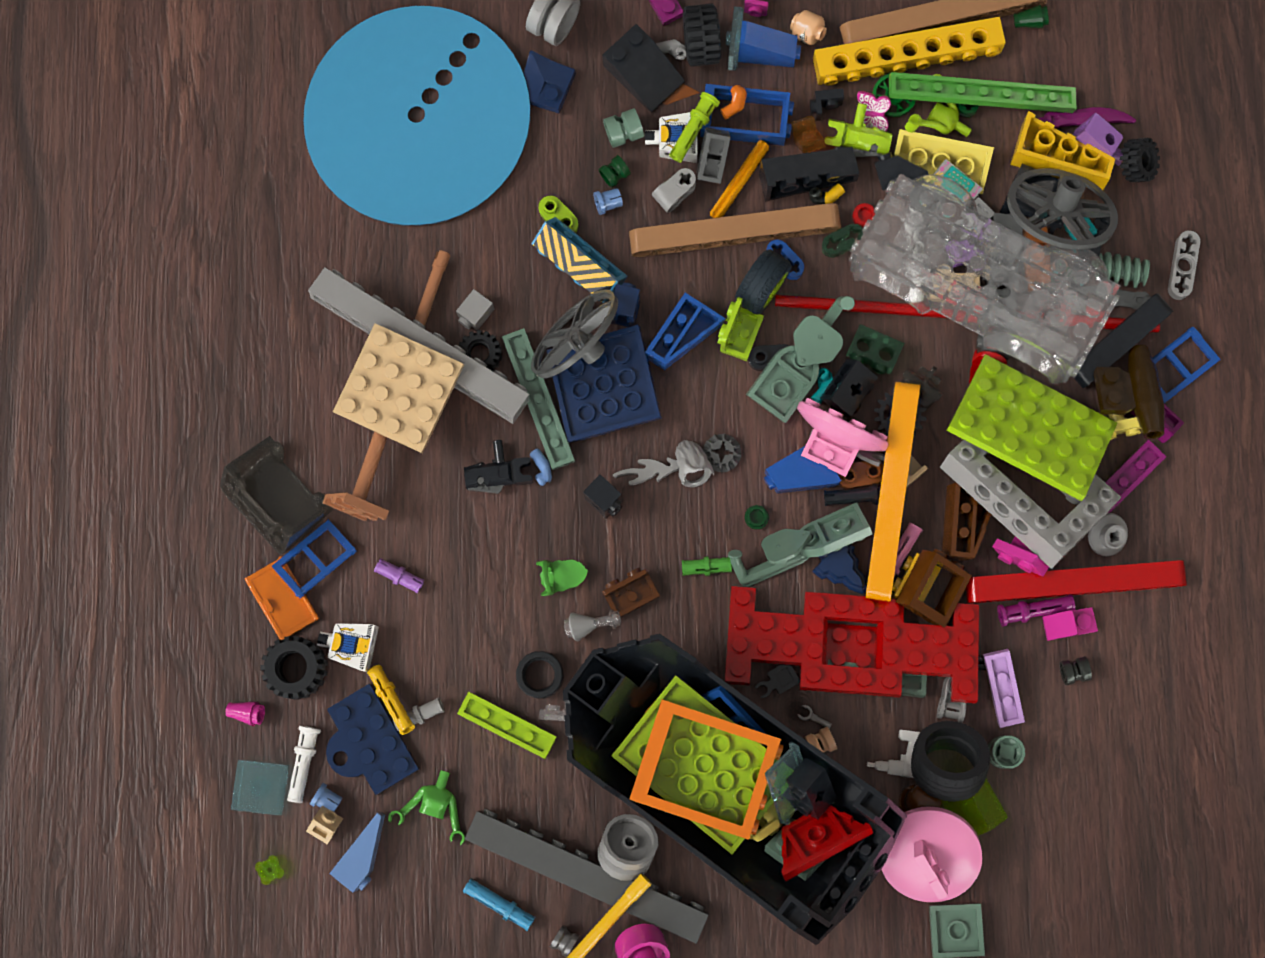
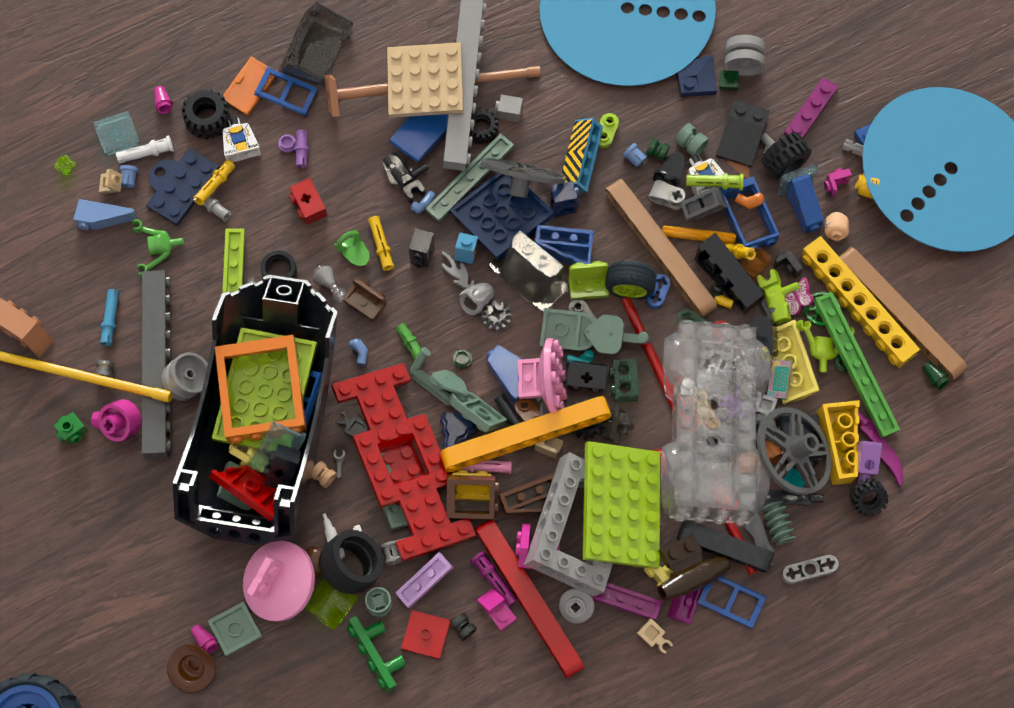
camera: 55 degrees right, 10 degrees down
(382, 589) = (287, 143): none -> medium lavender plate
(458, 432) = (420, 135): none -> blue slope
(460, 593) = (314, 208): none -> red brick
(569, 49) = (728, 80): none -> dark green plate
(577, 542) = (383, 250): none -> yellow pin
(626, 446) = (466, 248): none -> dark azure brick
(647, 169) = (671, 170): none -> black piece
(688, 626) = (361, 349): none -> medium blue arm
(696, 389) = (531, 272): none -> clear smoke windscreen
(790, 144) = (740, 251): none -> yellow pin
(1049, 791) = (375, 663): none -> green plate
(1062, 716) = (425, 634): none -> red plate
(1180, 468) = (652, 634): none -> tan plate

